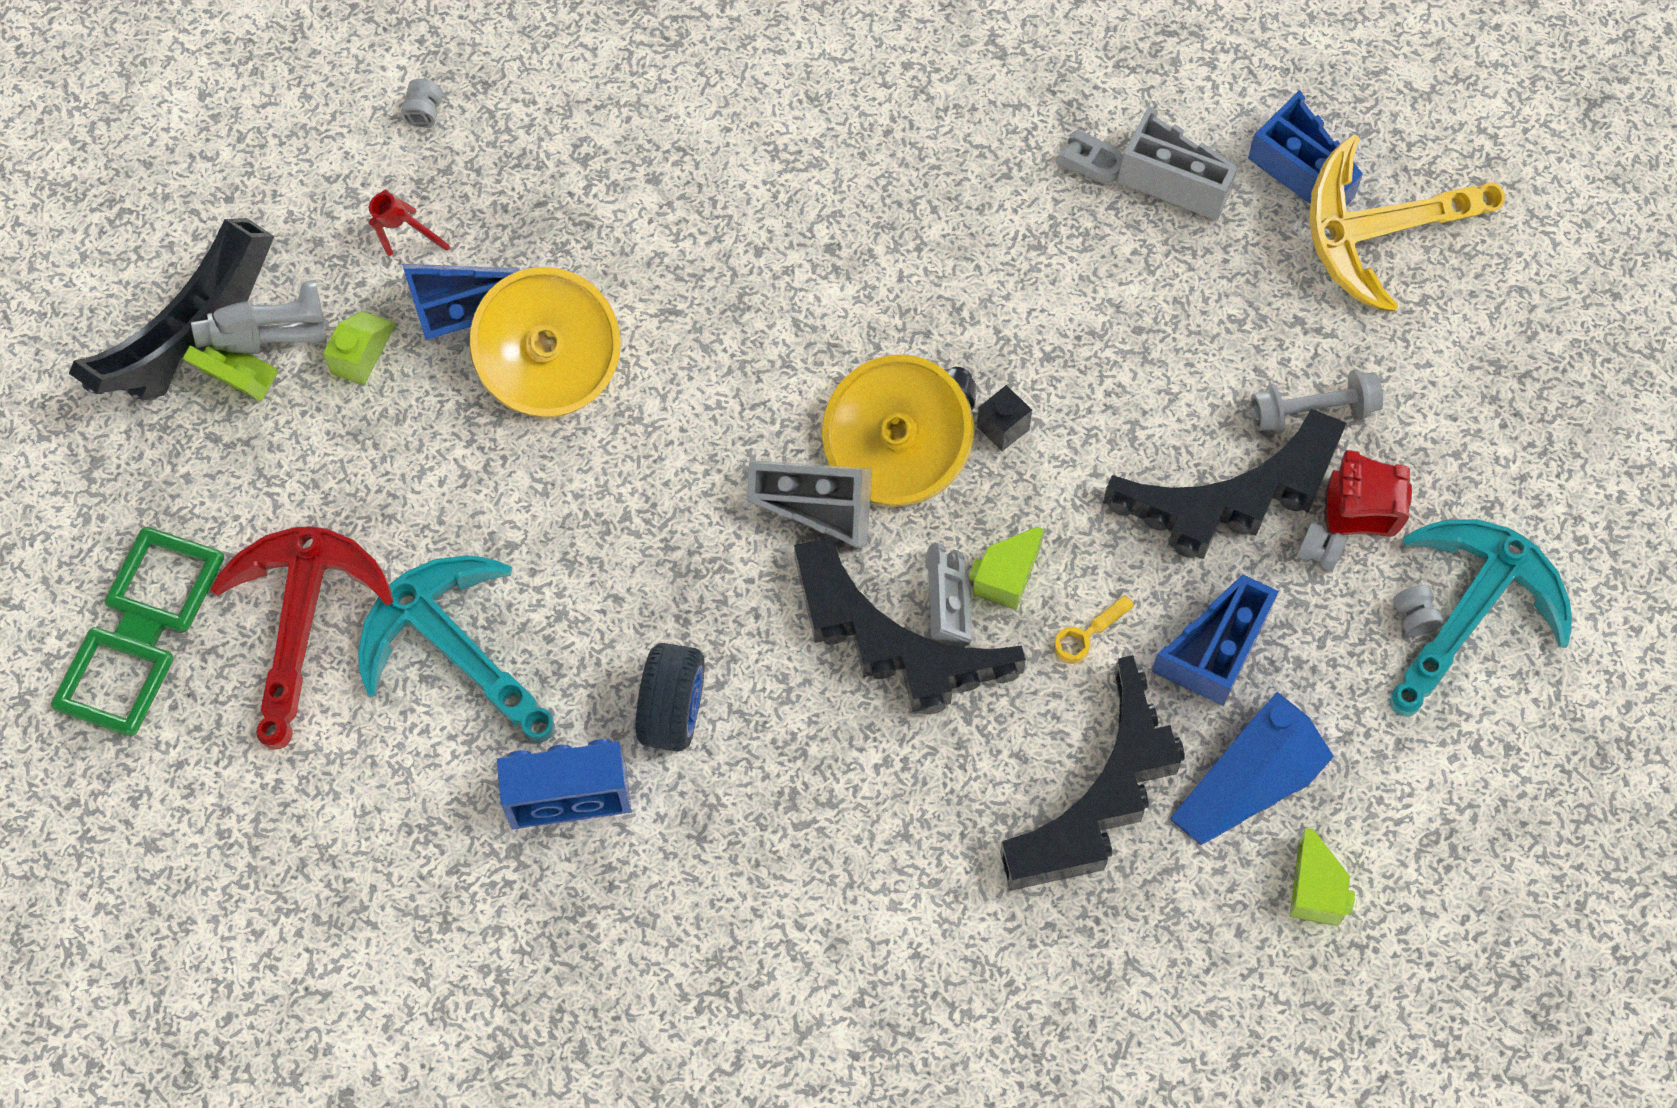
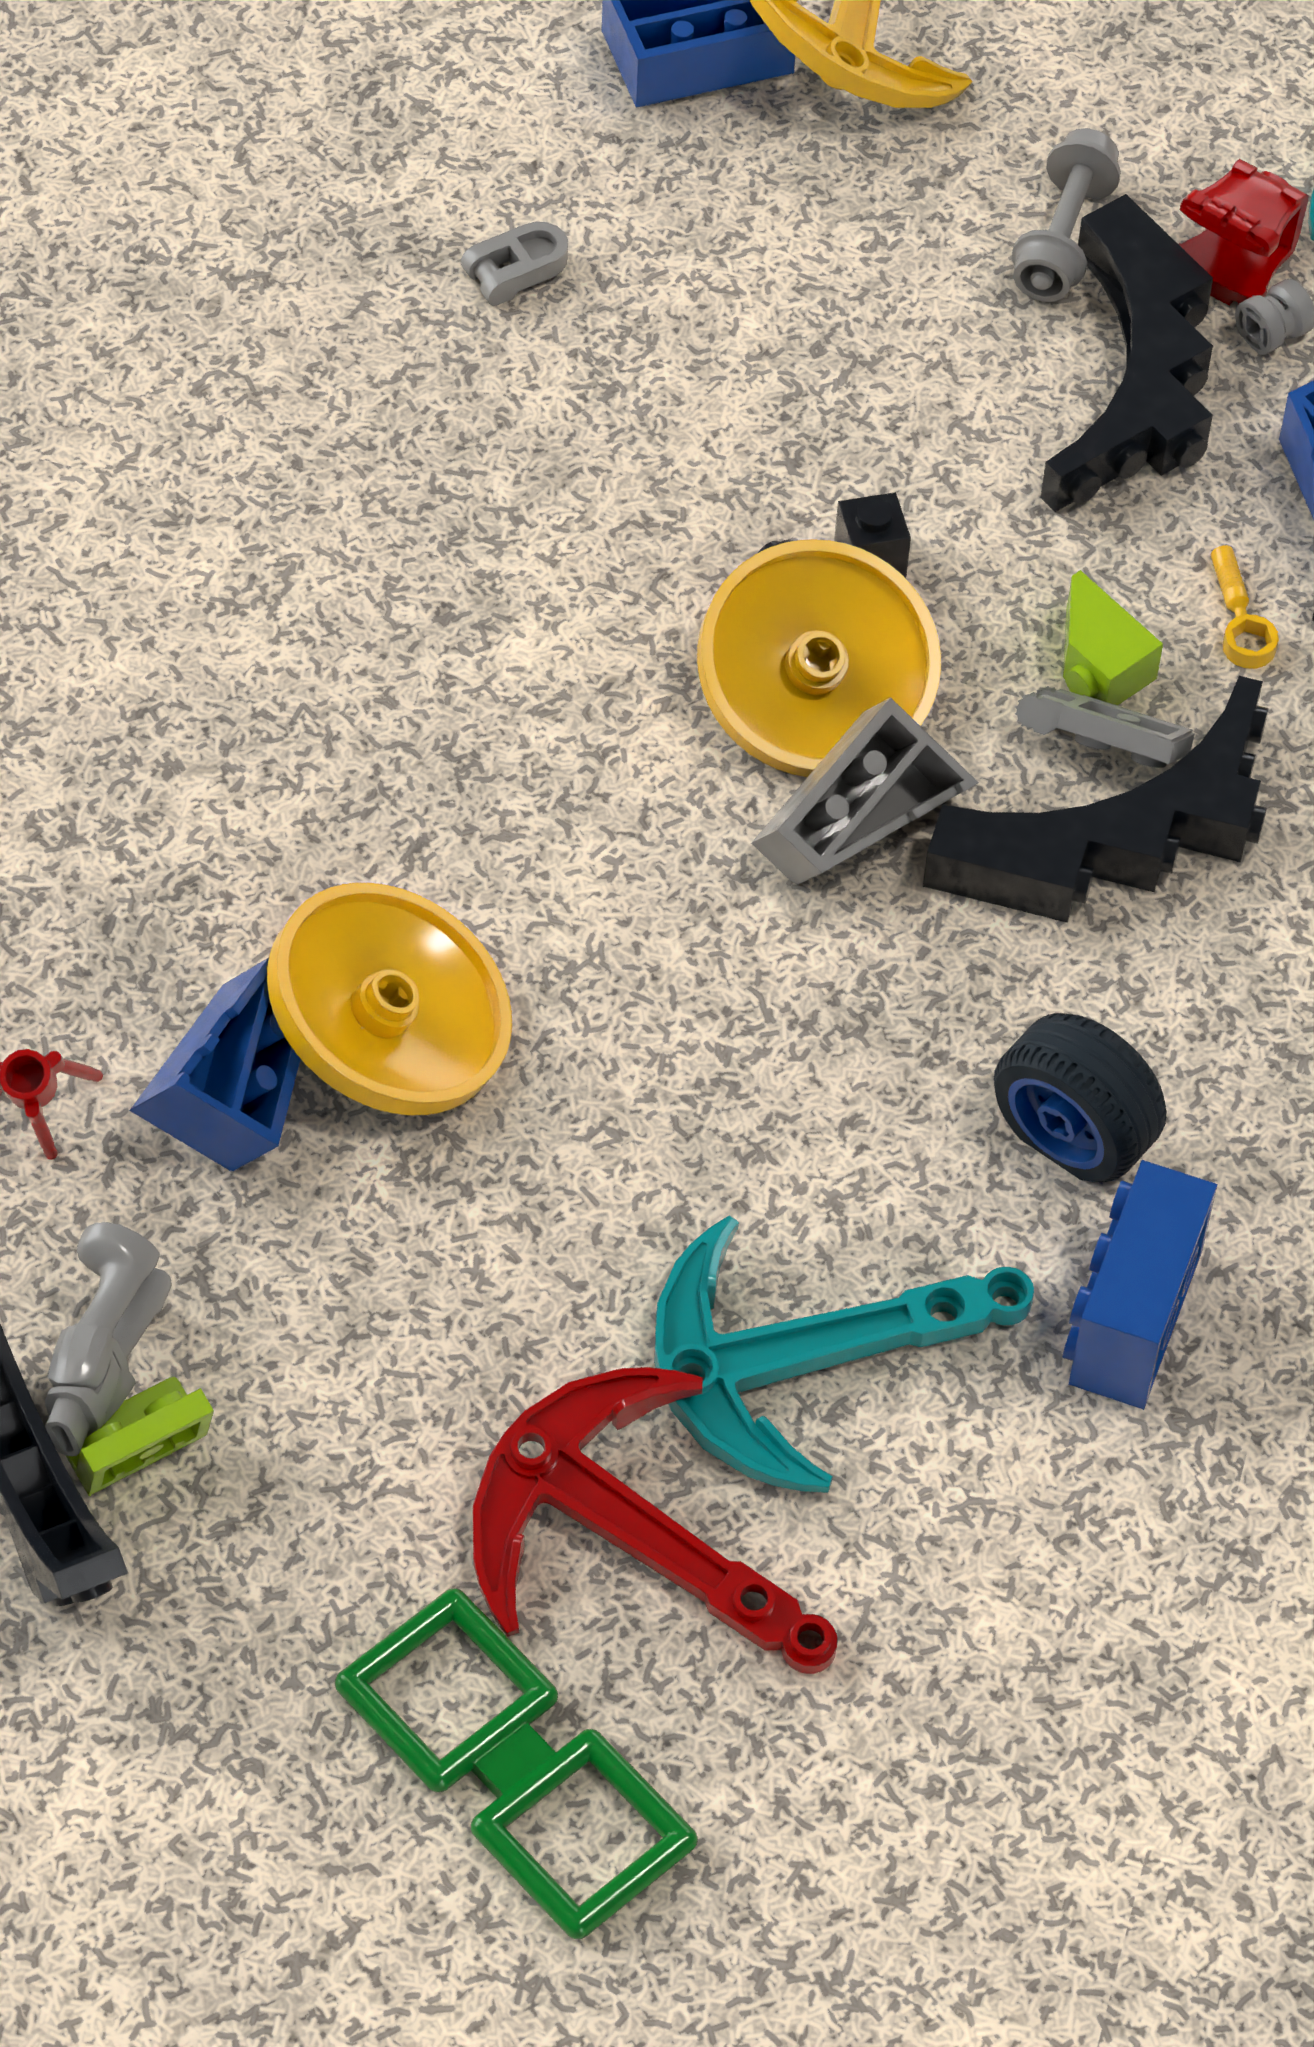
camera: 65 degrees left, 10 degrees down
(357, 346) = (211, 1253): lime slope -> none
(1175, 168) = (611, 176): light grey wedge -> none

